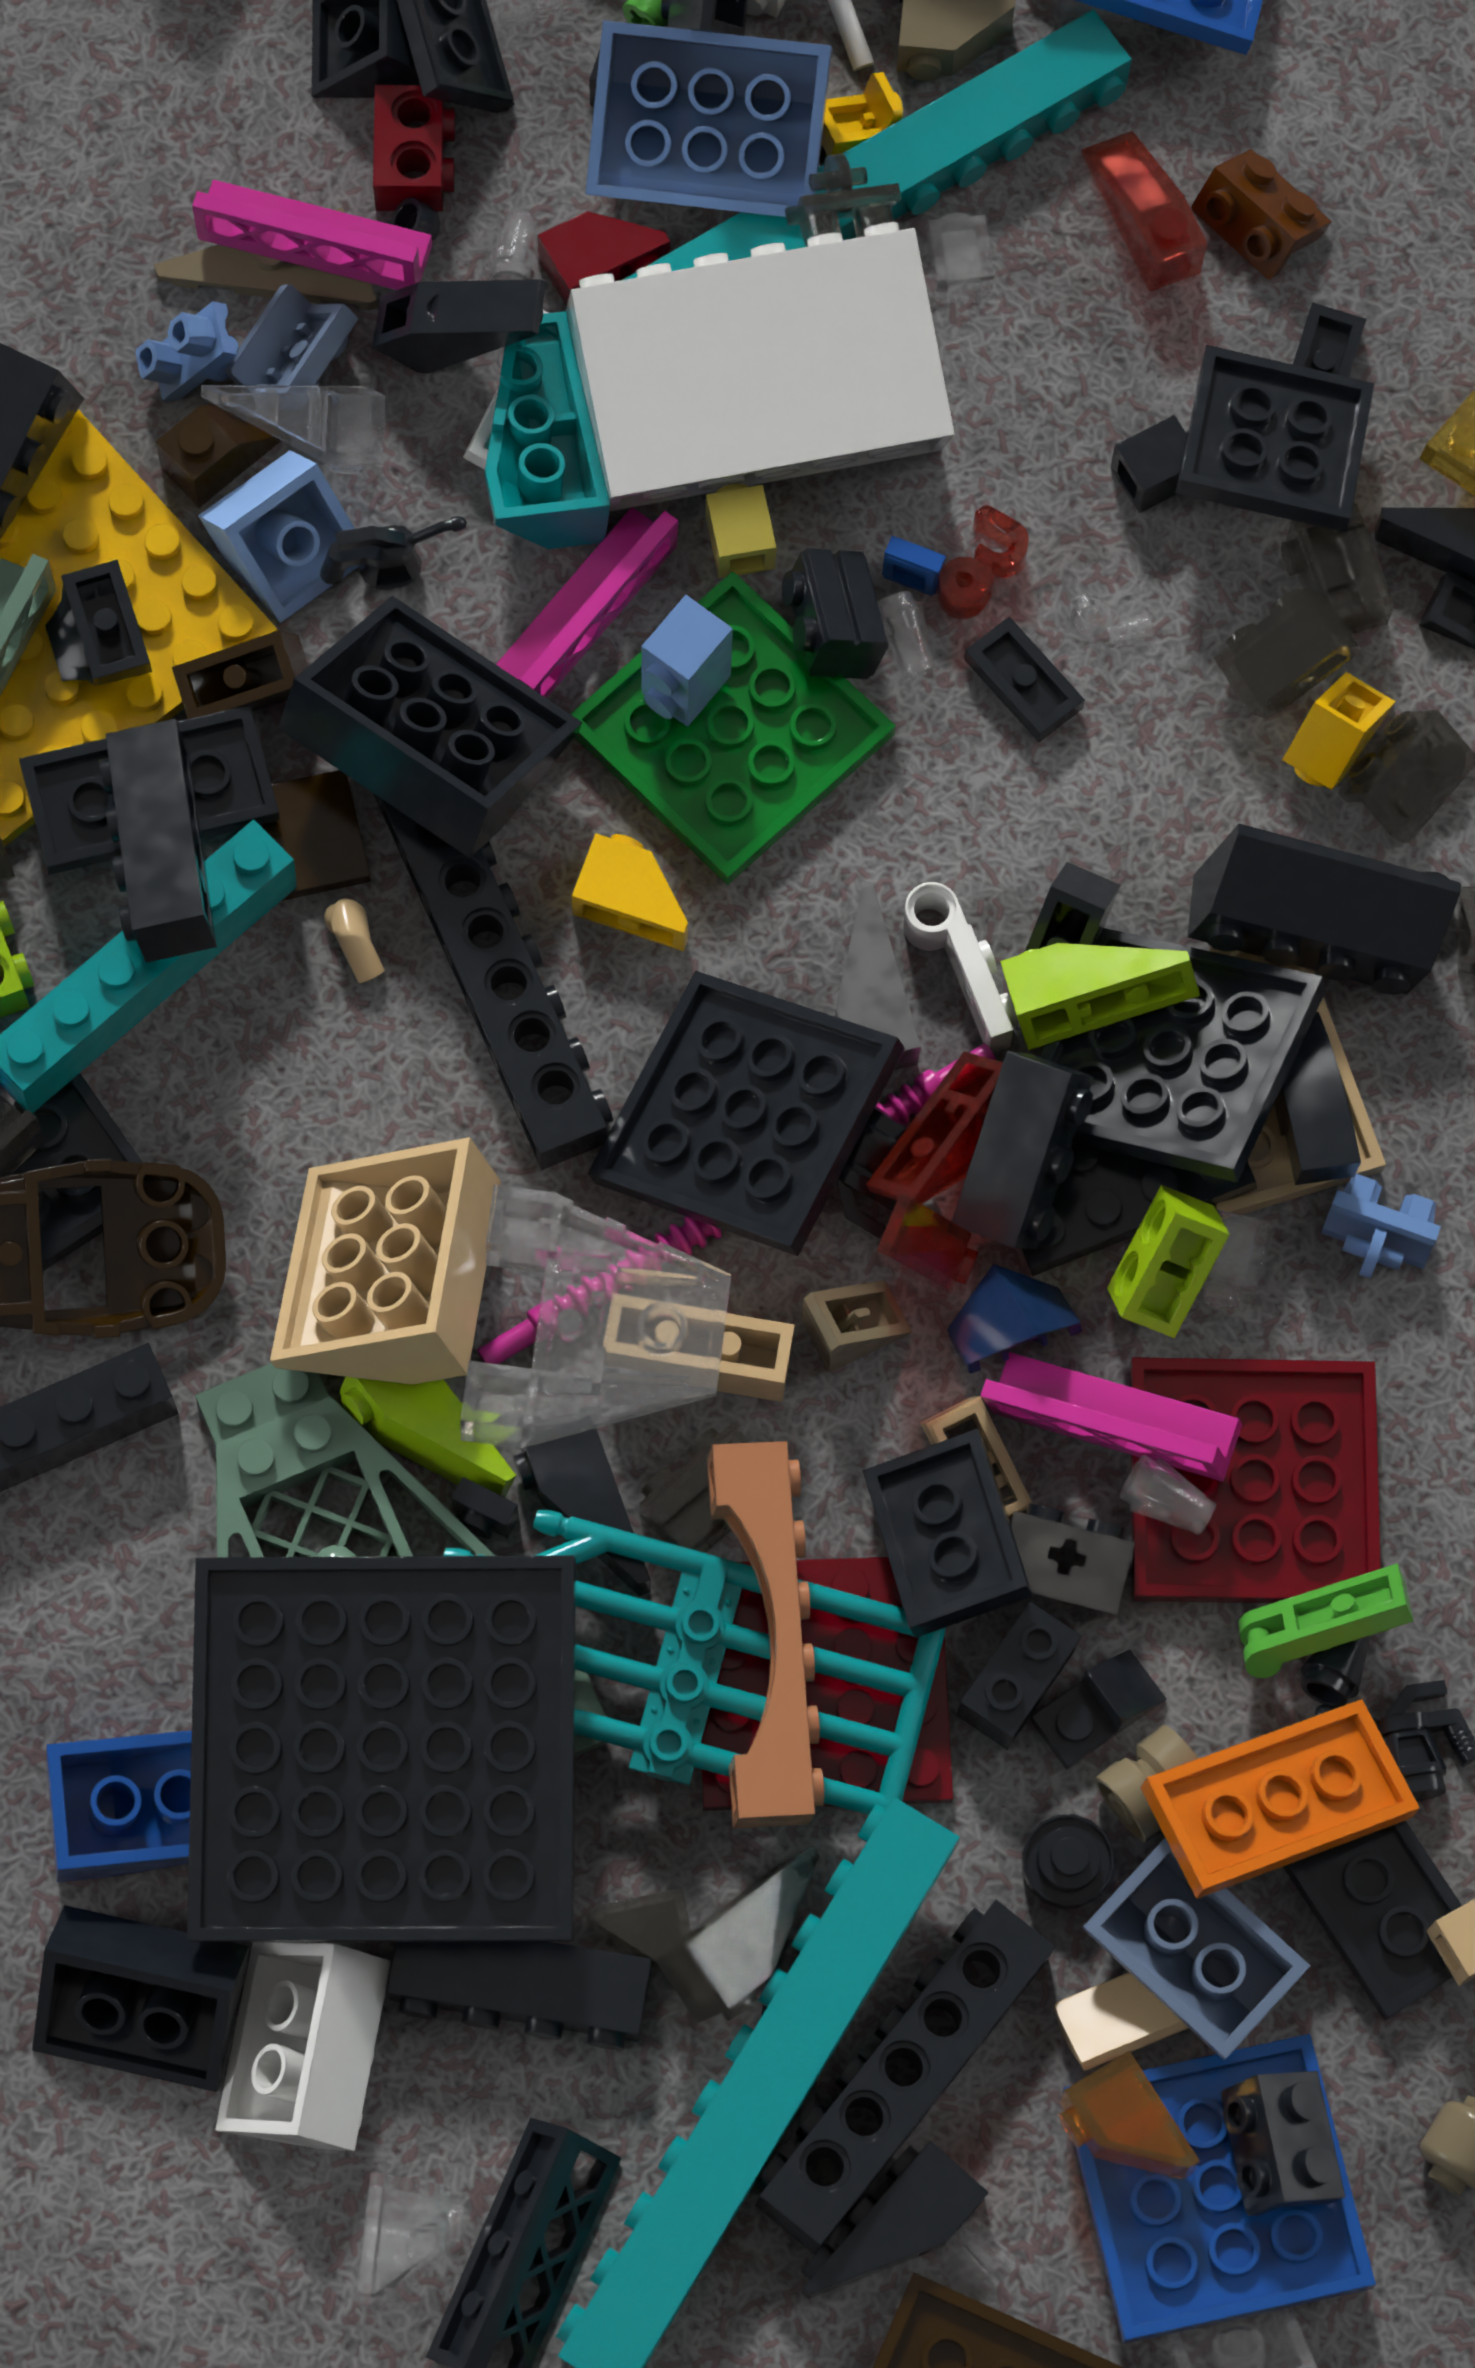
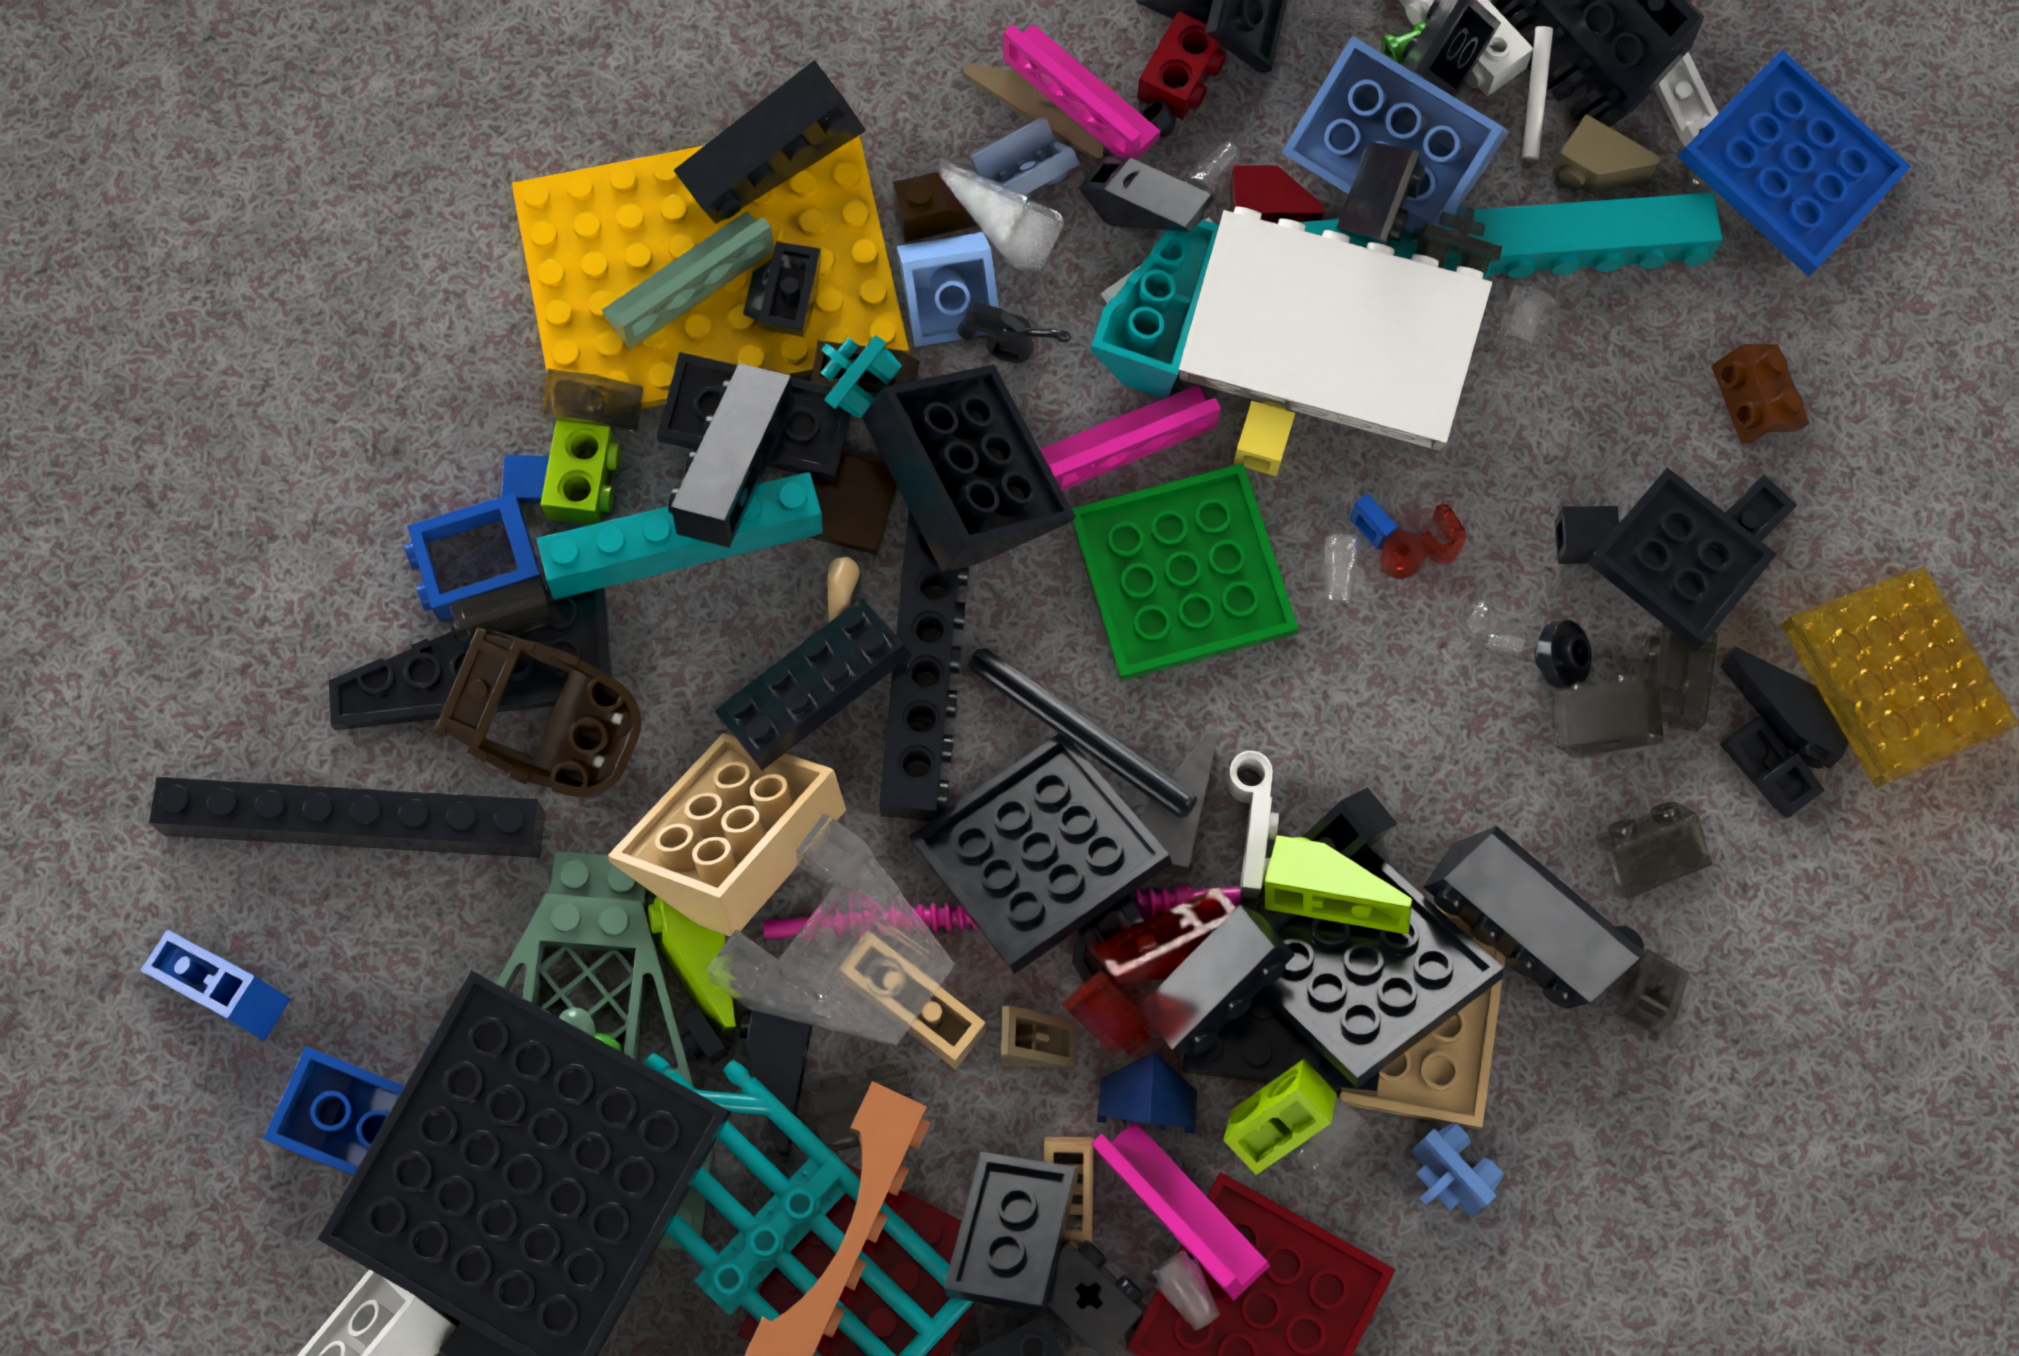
camera: 30 degrees right, 0 degrees up
(138, 1998) = (270, 1258): black slope -> none
(190, 354) = (953, 133): medium blue hips -> none
(255, 654) = (872, 358): none -> teal hips
(386, 1058) = (812, 683): none -> black plate
(628, 892) = (1044, 648): yellow slope -> none
(685, 661) = (1168, 510): medium blue brick -> none
(720, 959) = (1083, 733): none -> black axle
(734, 186) = (1380, 192): none -> black slope
(835, 613) = (1297, 528): black brick -> none
(861, 116) = (1504, 189): yellow bracket -> none
(1024, 679) = (1409, 641): black plate -> none
(1147, 210) = (1678, 352): clear red slope -> none
(1200, 609) = (1563, 654): none -> black plate
(1316, 1113) = (1448, 1063): black slope -> none
(1337, 731) = (1617, 791): yellow slope -> none

